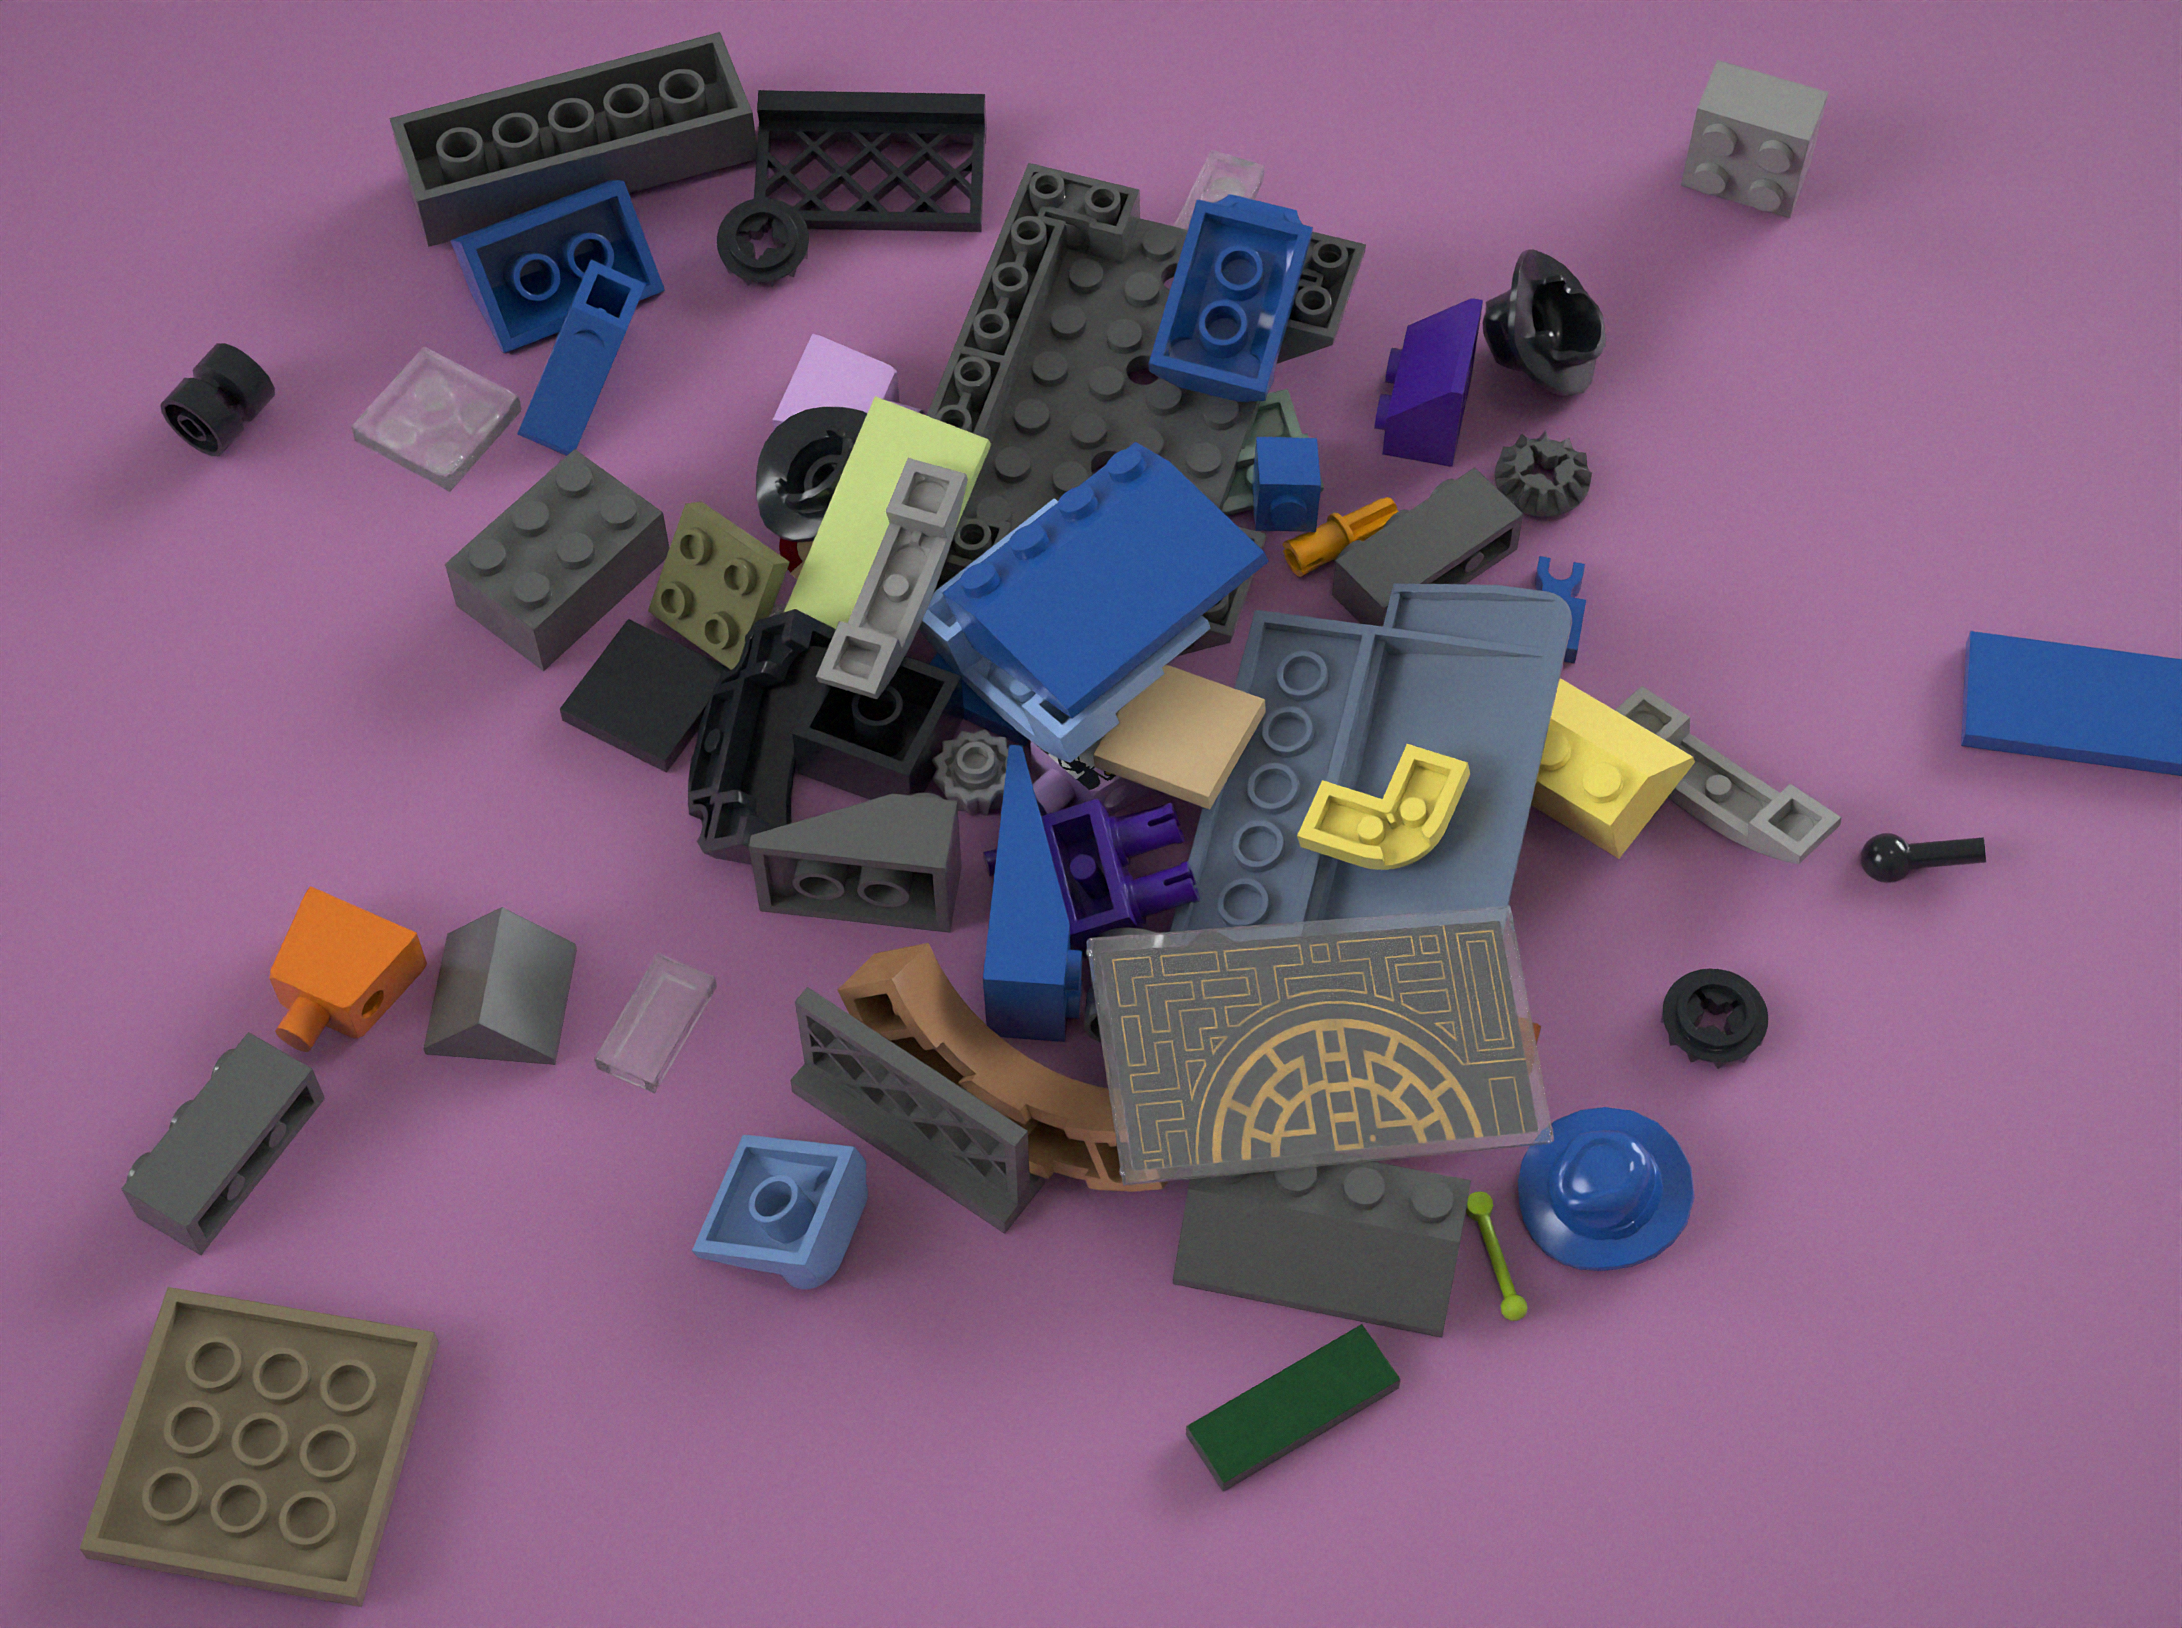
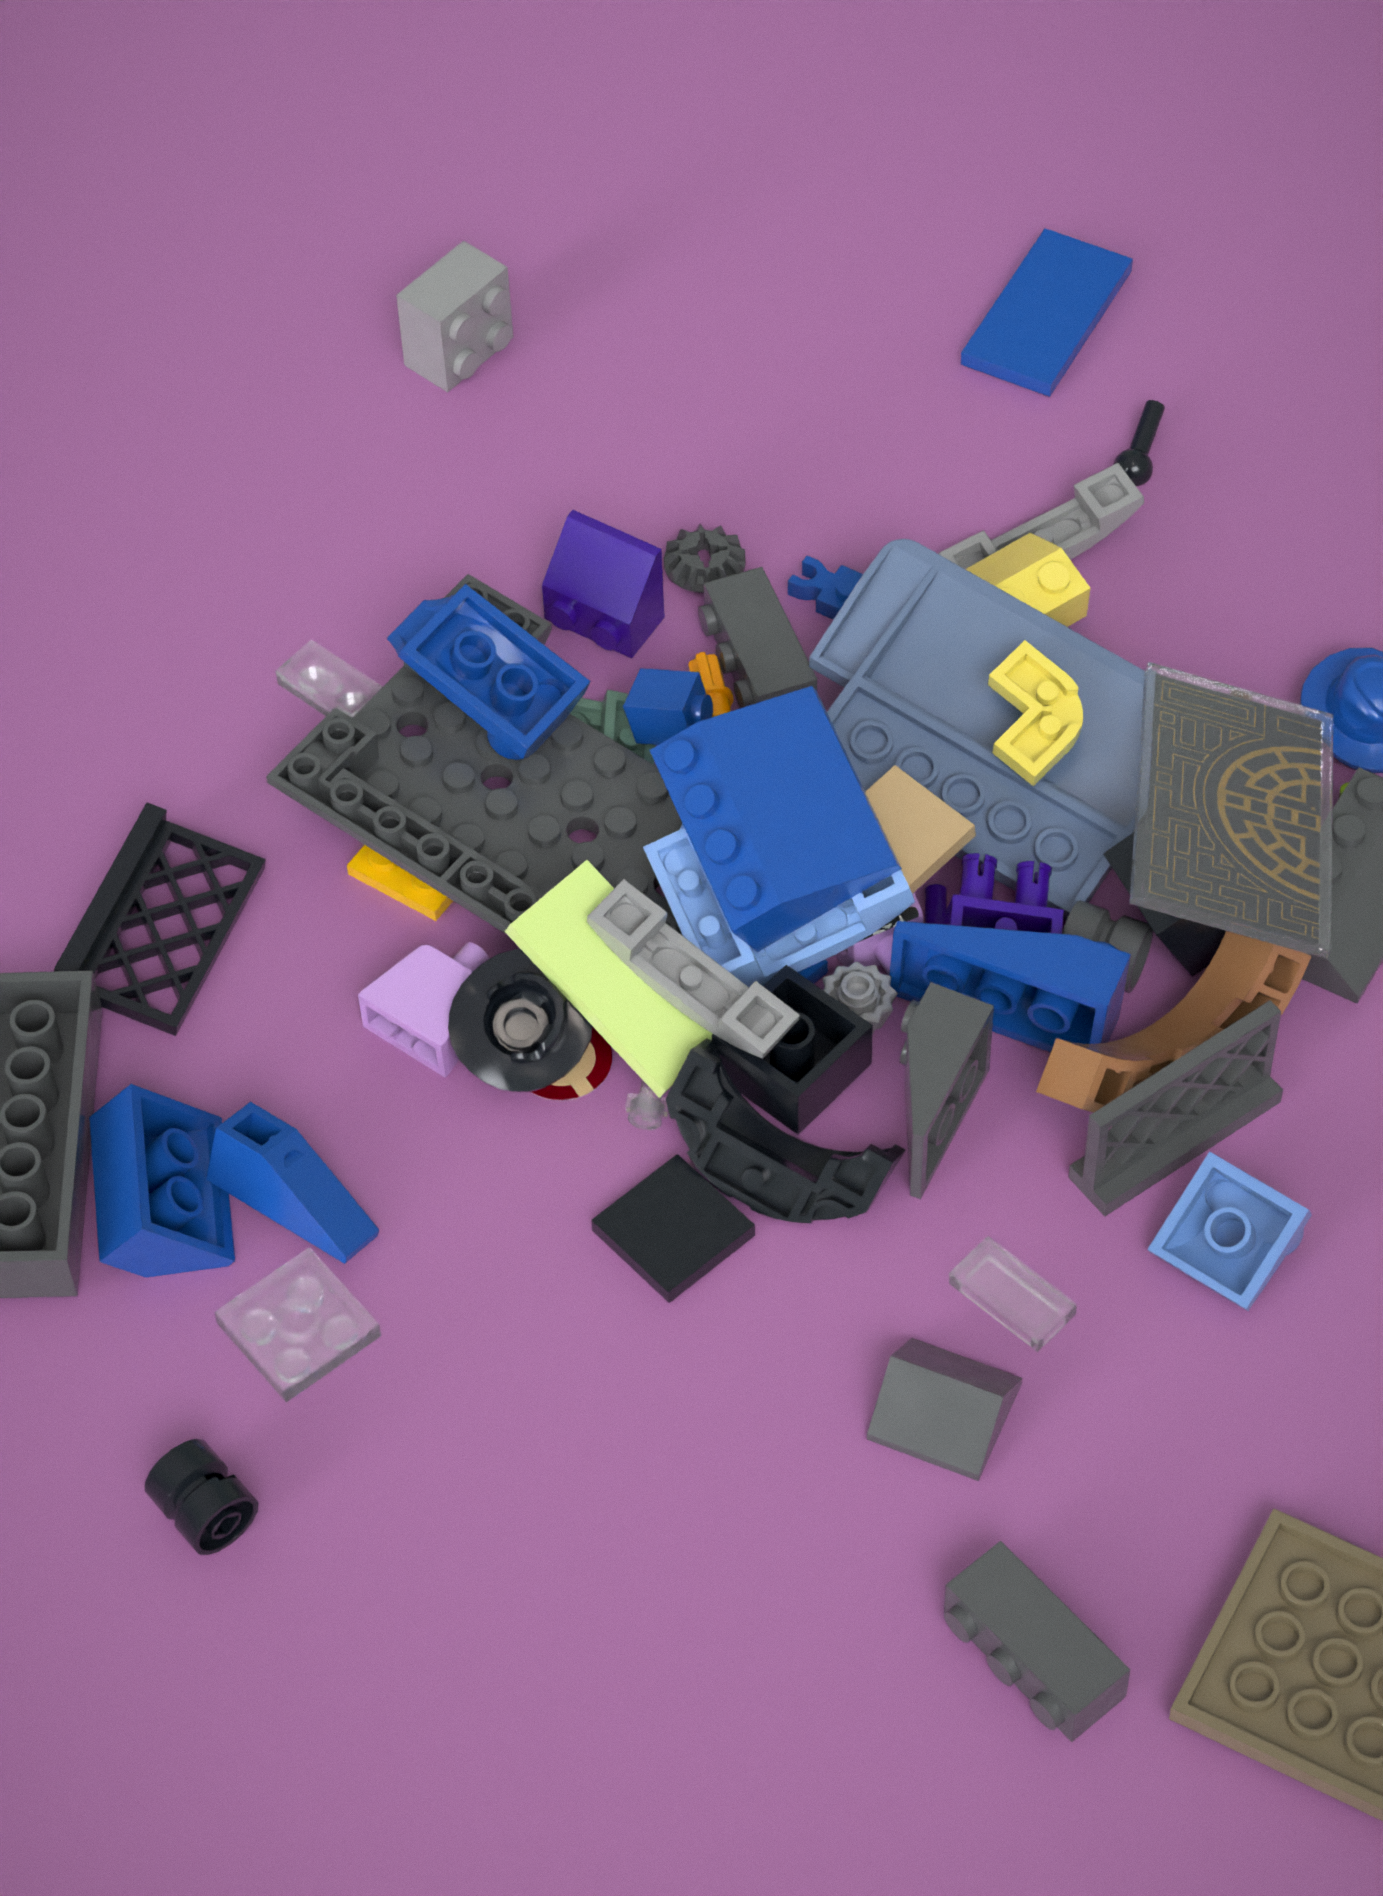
camera: 70 degrees left, 5 degrees down
(340, 969) = (885, 1517): orange torso -> none
(558, 559) = (511, 1253): dark grey brick -> none
(716, 583) = (606, 1127): olive plate -> none
(750, 222) = (211, 1000): black gear -> none
(1546, 326) = (579, 489): black hat -> none
(1719, 993) = (1252, 591): black gear -> none

